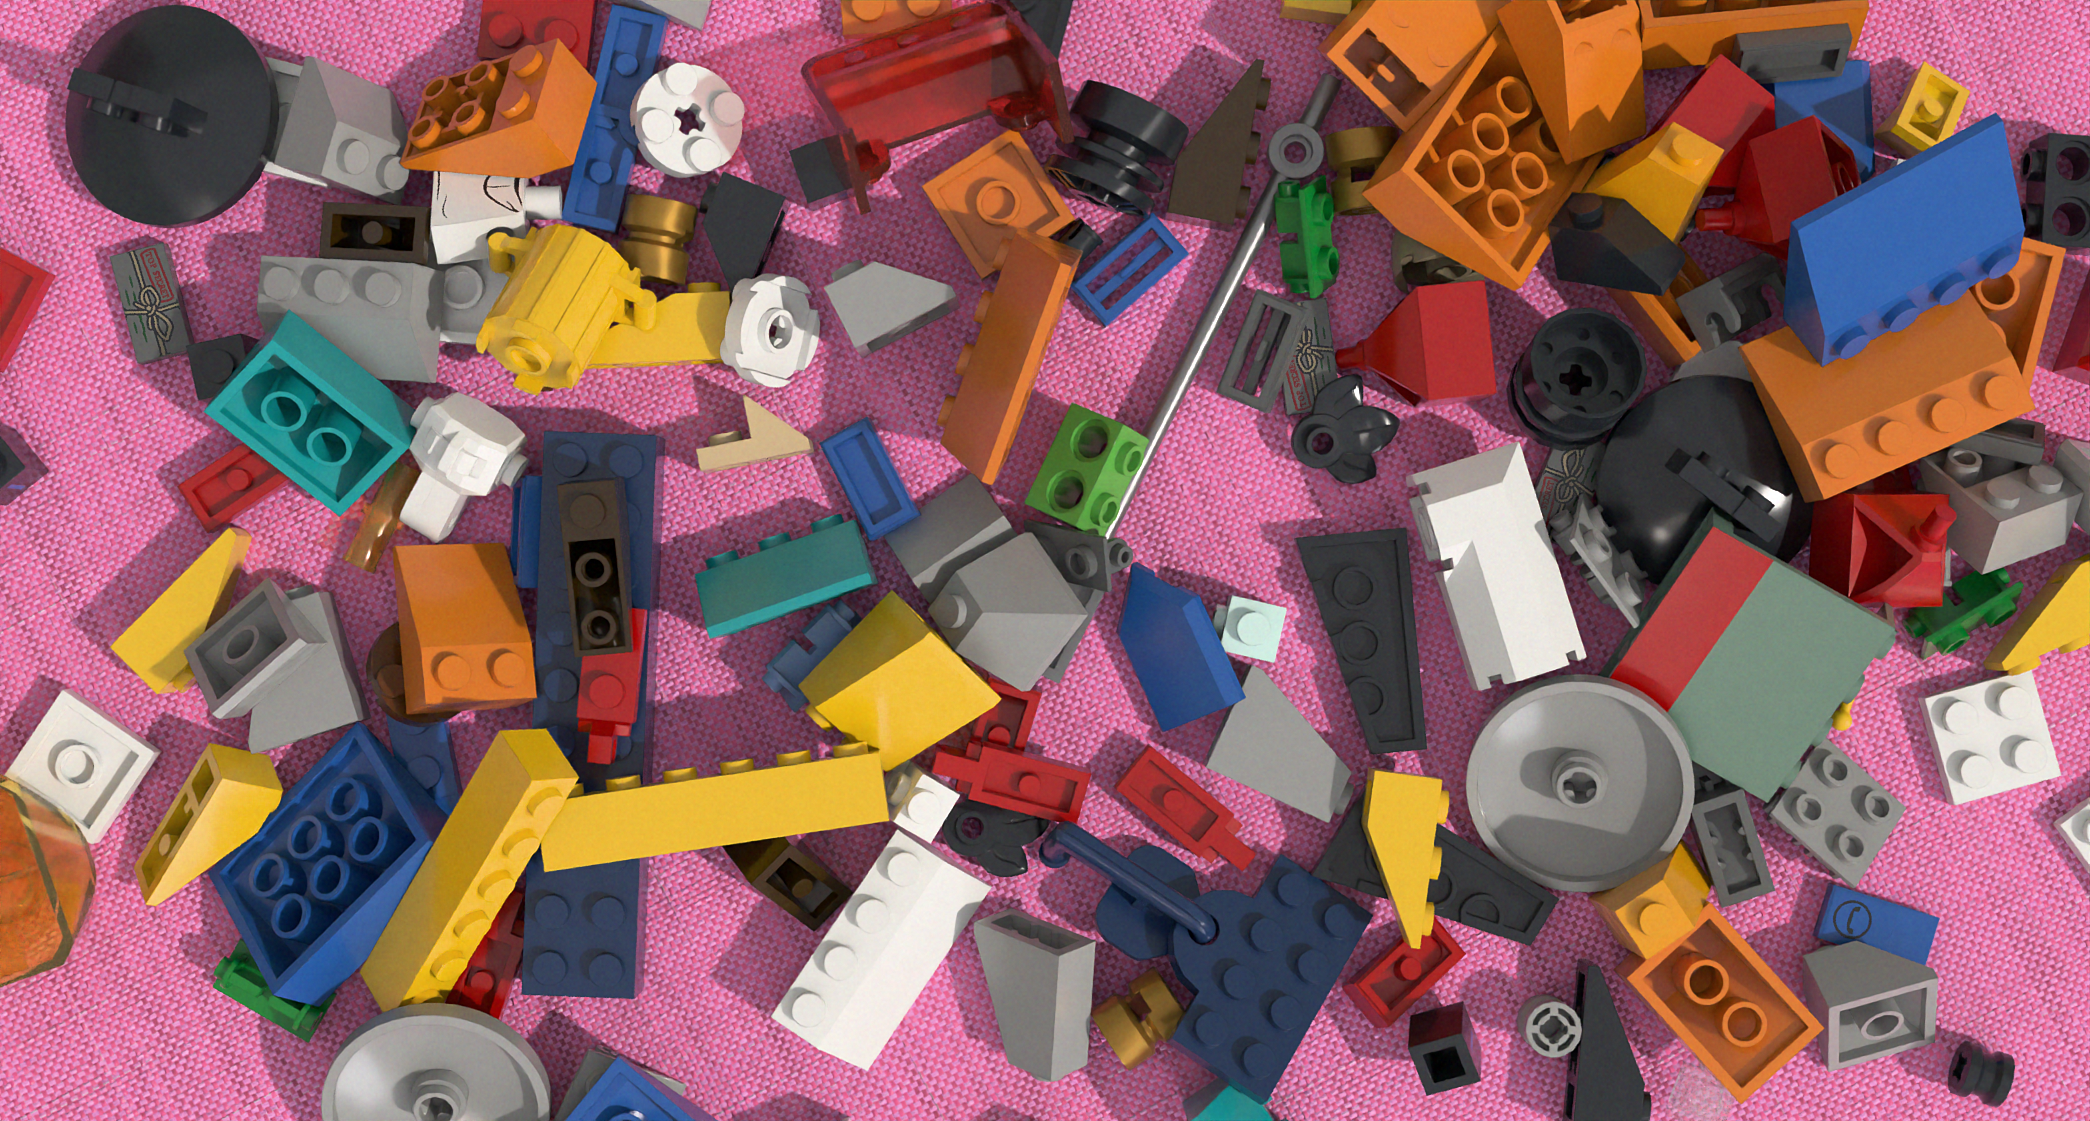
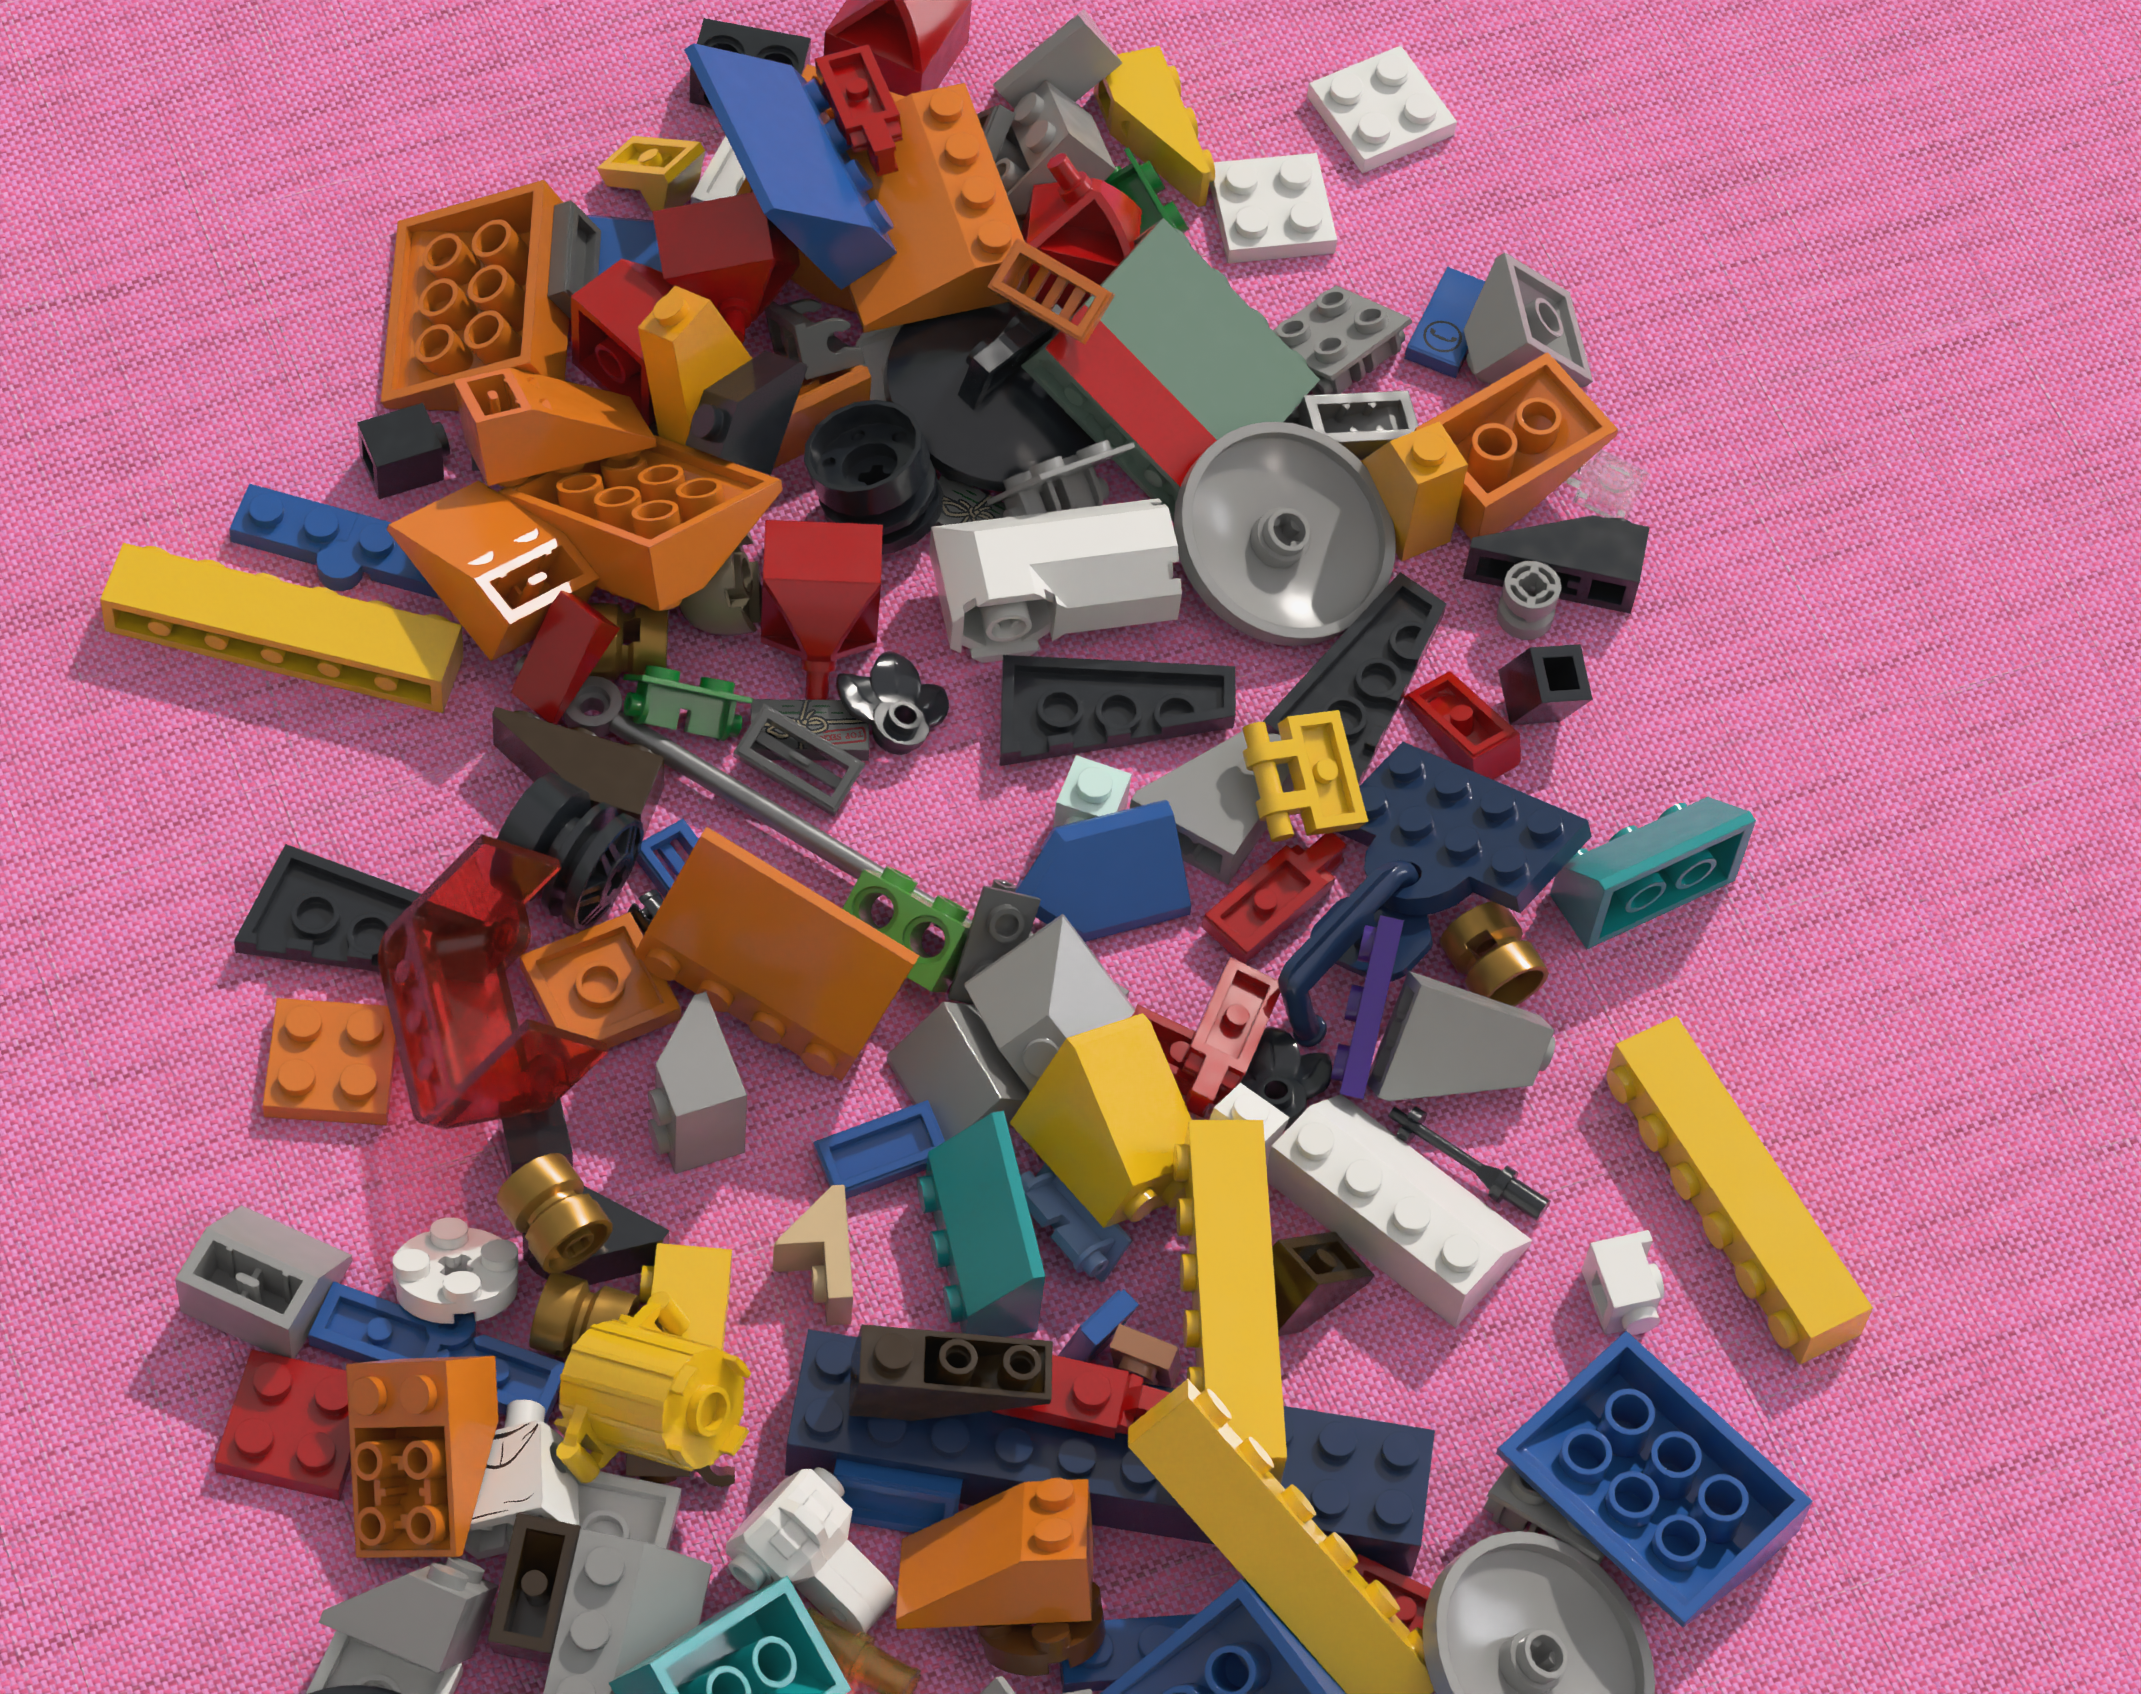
camera: 85 degrees left, 30 degrees down
(674, 735) = (1145, 1356): none -> nougat plate
(691, 689) = (1100, 1328): none -> blue tile
(723, 194) = (550, 1208): none -> pearl gold wheel
(747, 343) = (705, 1209): white plate -> none
(919, 1037) = (1501, 1183): none -> black piece
(1057, 906) = (1367, 1005): none -> dark purple plate
(1301, 841) = (1320, 773): none -> yellow plate
(1326, 114) = (562, 656): none -> red slope
(1401, 829) = (1317, 678): yellow slope -> none
(1765, 498) = (1014, 270): none -> orange slope
(1981, 1074) = (1602, 252): black wheel -> none
(1988, 306) = (862, 105): none -> red hinge

